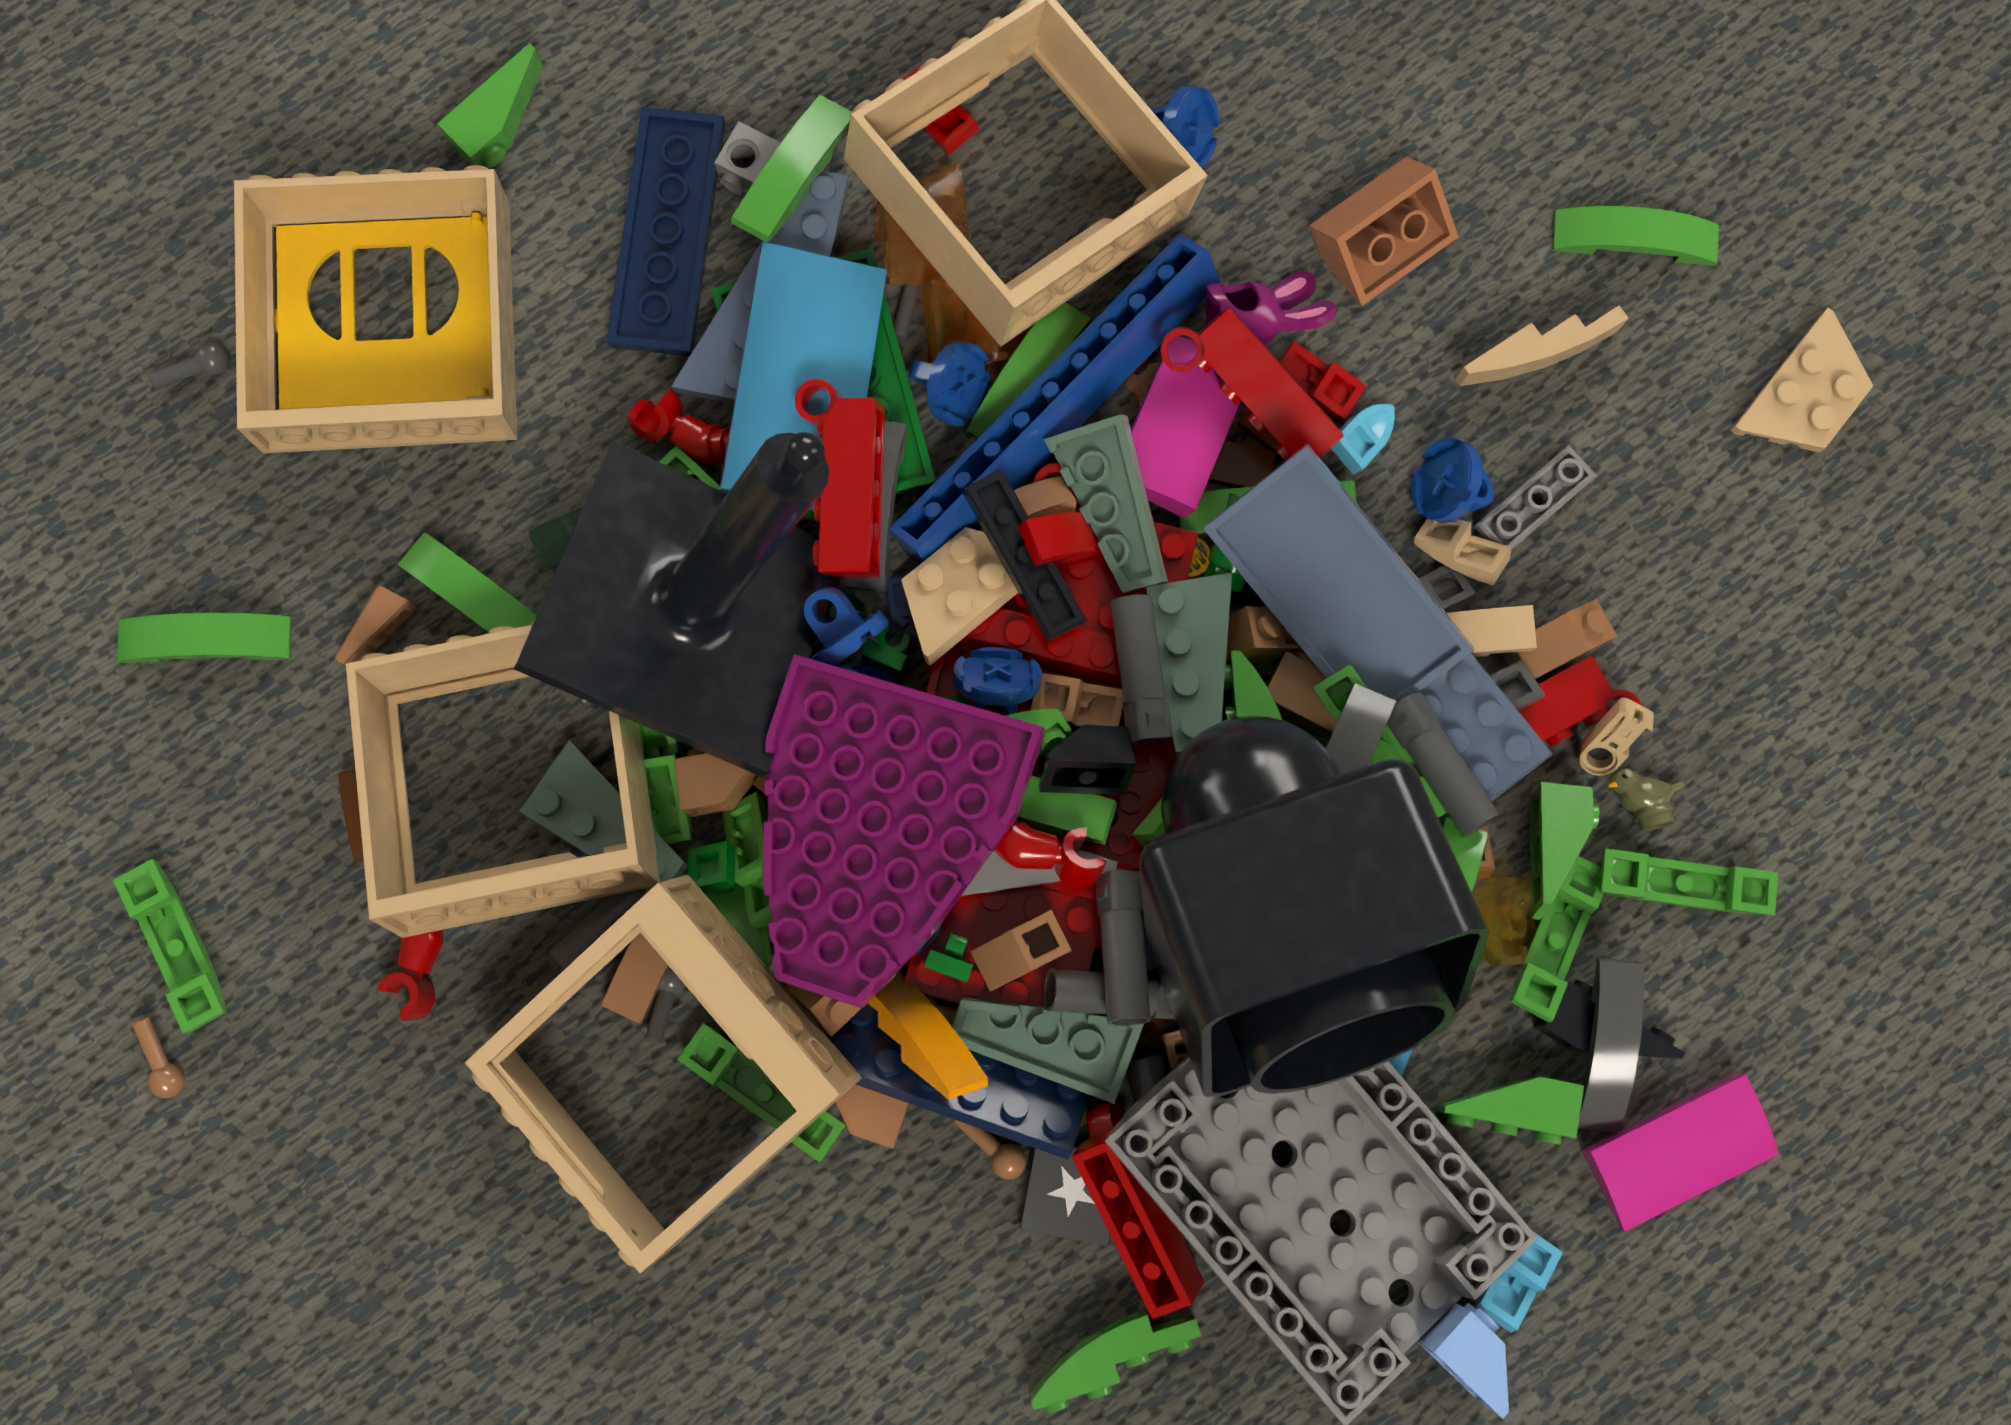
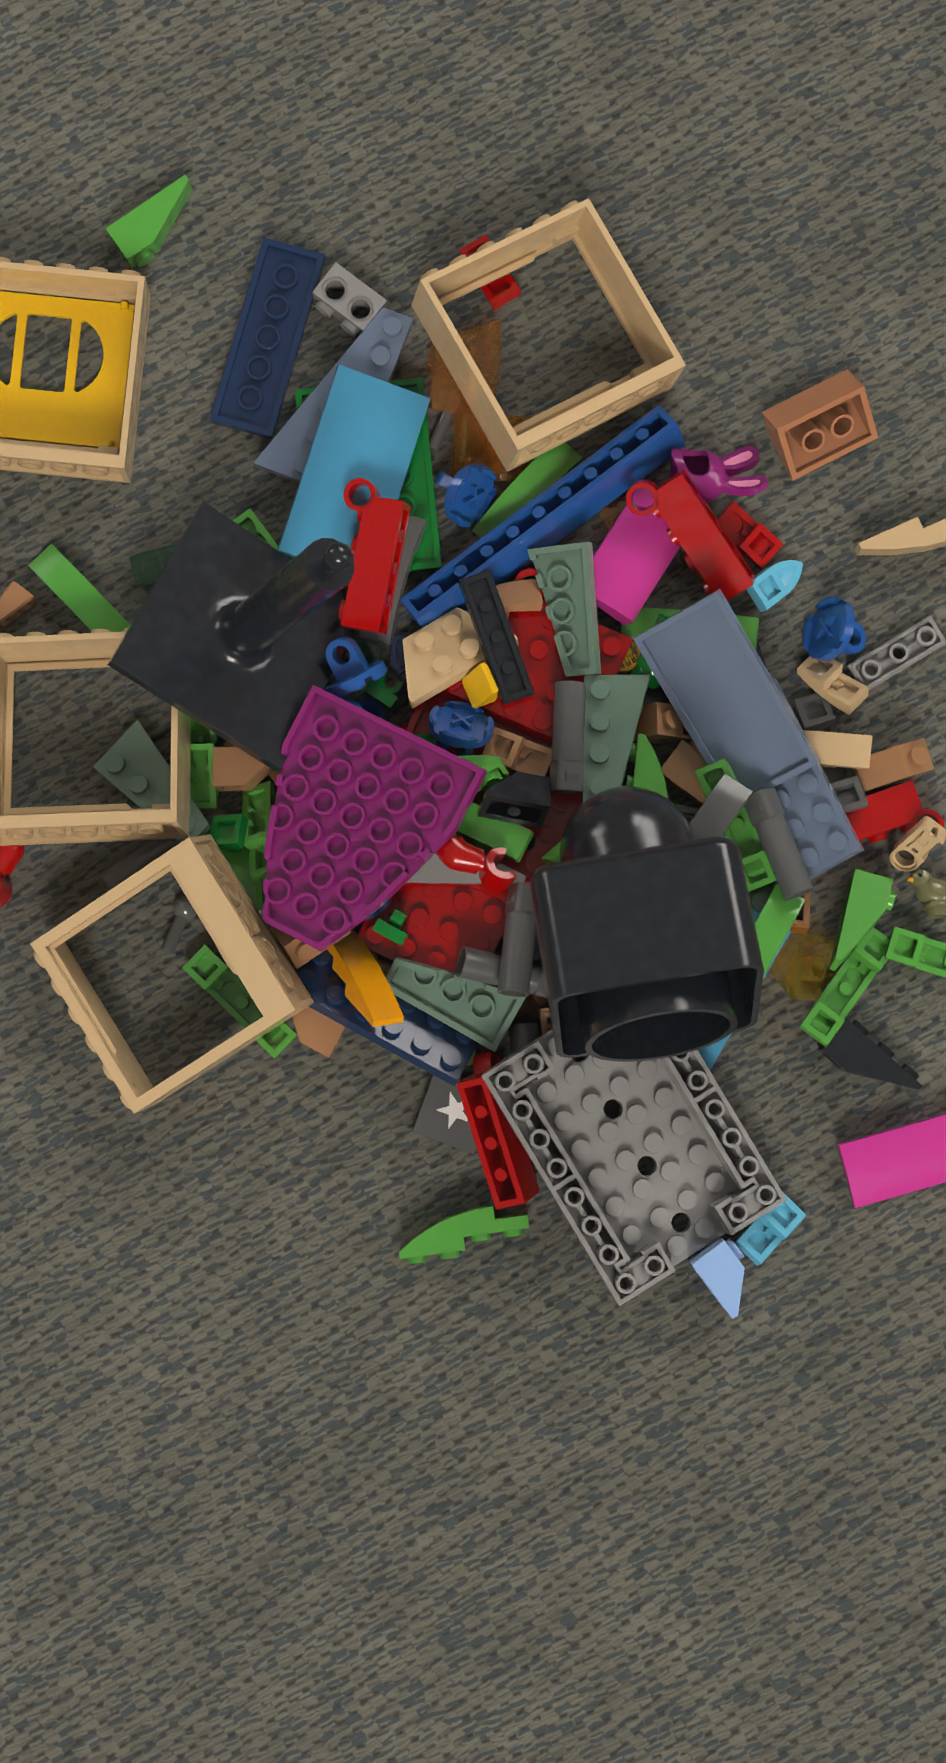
camera: 20 degrees right, 5 degrees up
(636, 981) = (160, 905): medium nougat slope -> none
(694, 437) = (264, 503): red piece -> none
(792, 169) = (371, 309): bright green slope -> none
(1006, 1159) = (410, 1080): medium nougat bar -> none
(1014, 622) = (480, 686): none -> yellow slope
(1021, 950) = (444, 929): medium nougat slope -> none
(1059, 538) = (524, 628): red slope -> none
(1191, 121) = (683, 317): blue tile -> none
(1242, 465) = (676, 591): reddish brown tile -> none
(1528, 1103) = (802, 1104): bright green slope -> none
(1613, 1043) = (868, 1071): dark grey slope -> none

